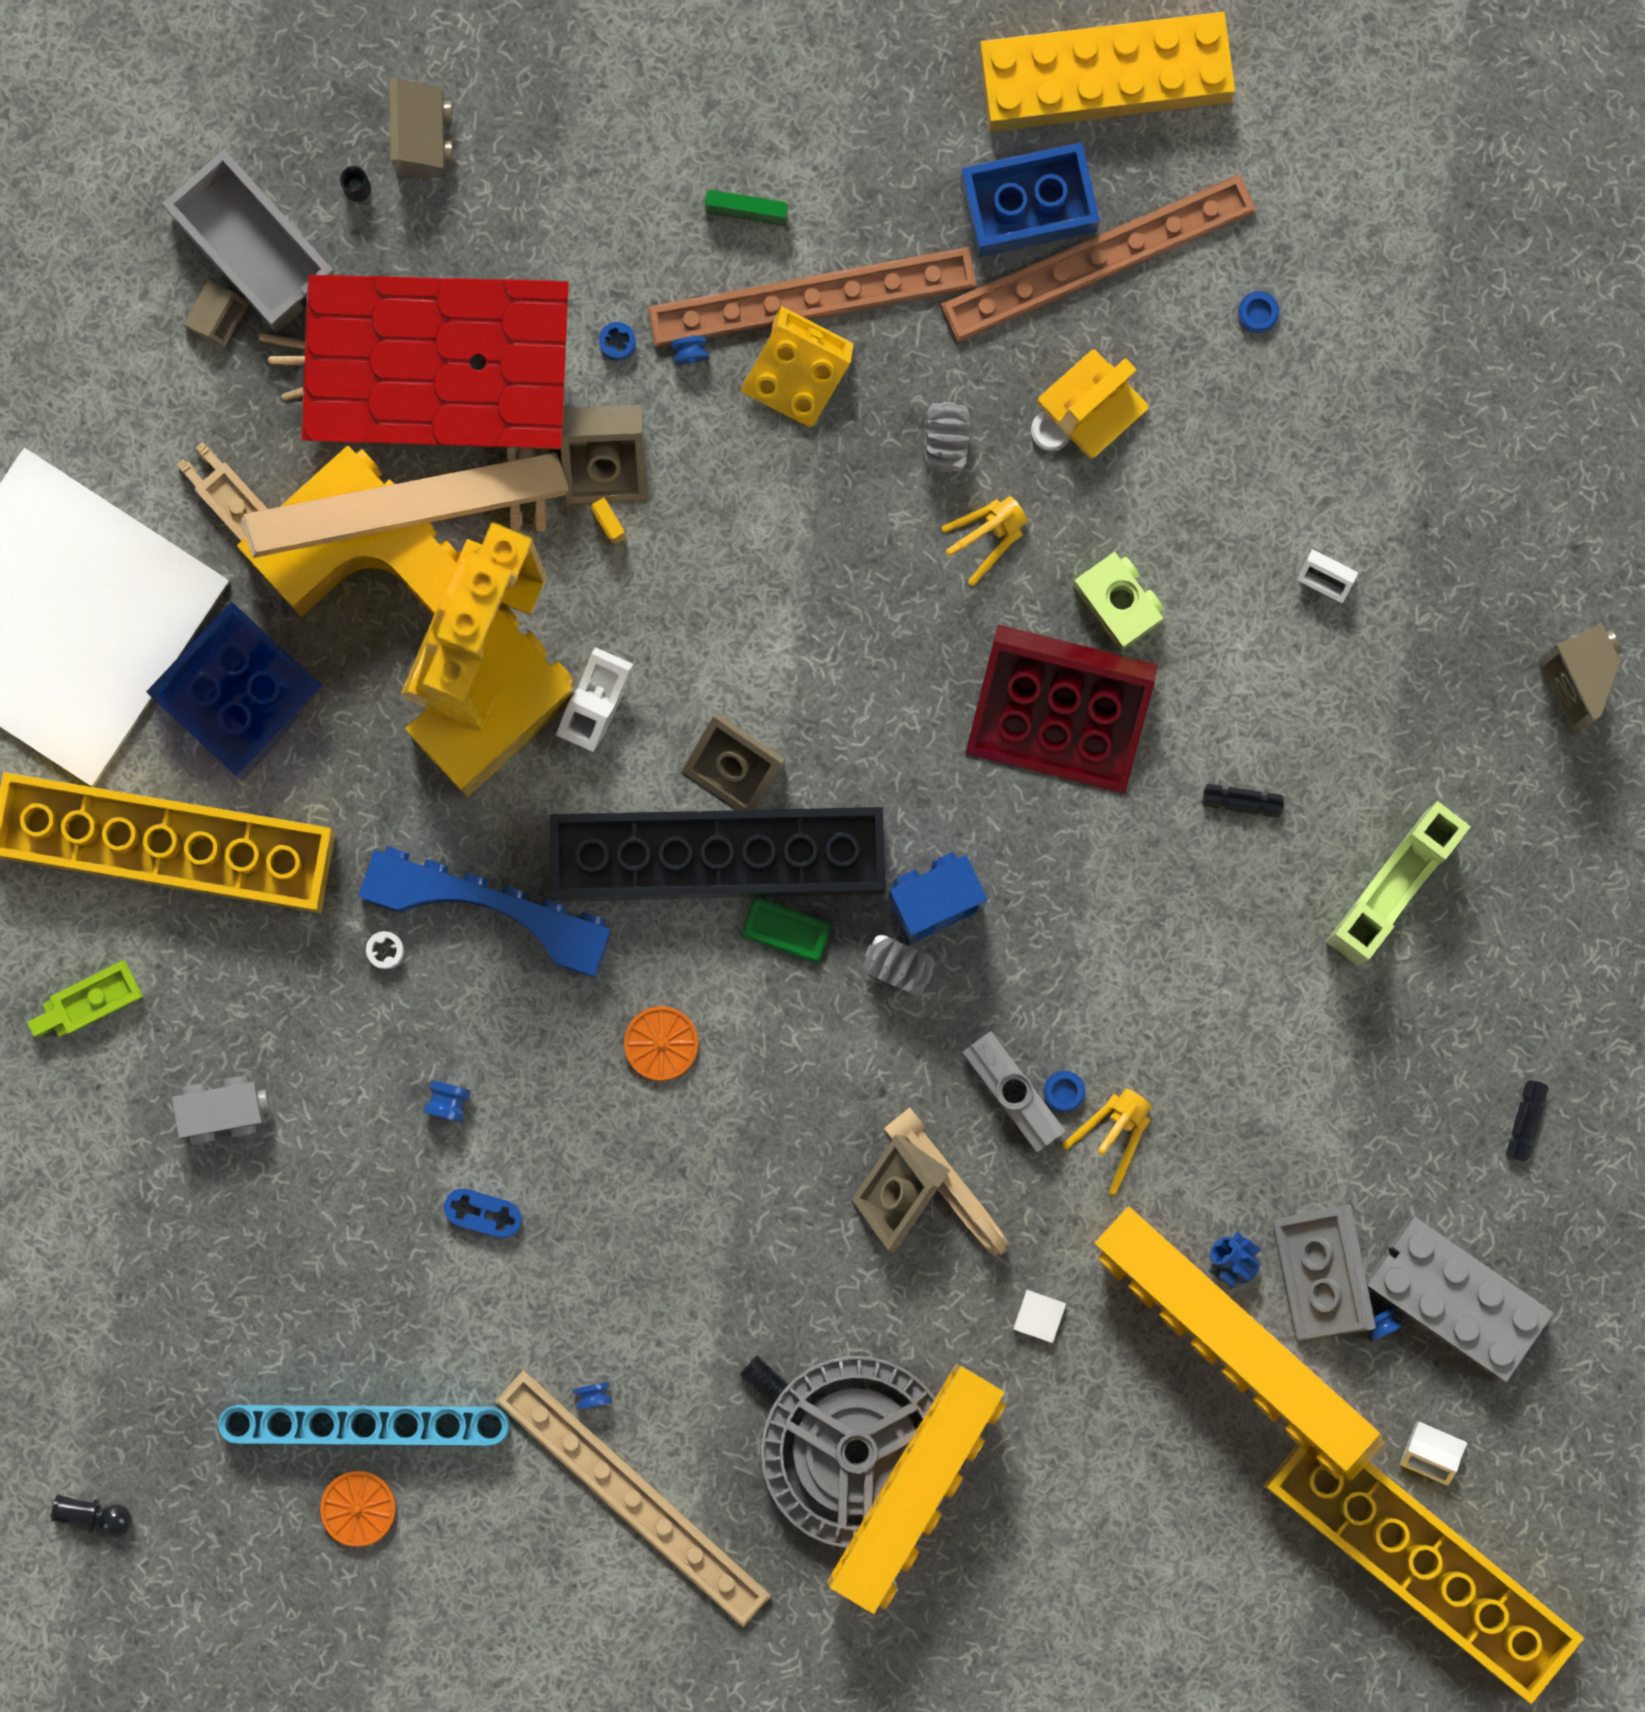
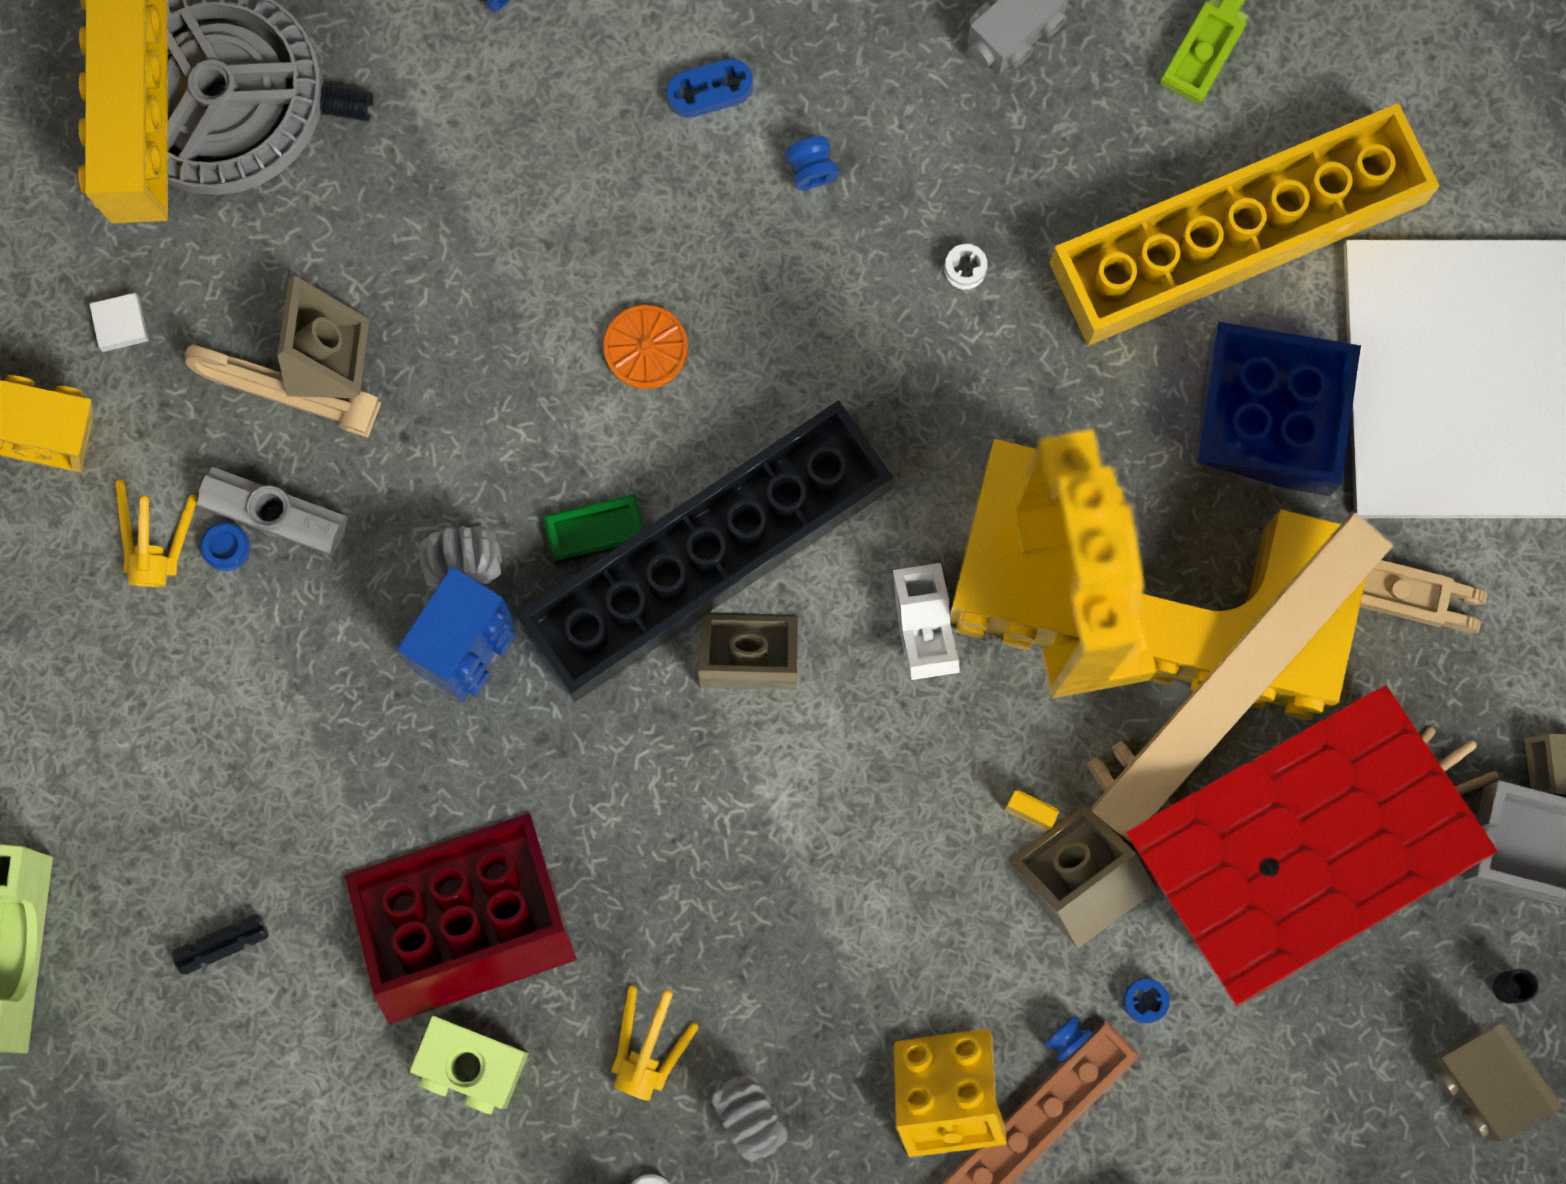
camera: 145 degrees right, 5 degrees down
(404, 885) = (800, 382): blue arch -> none

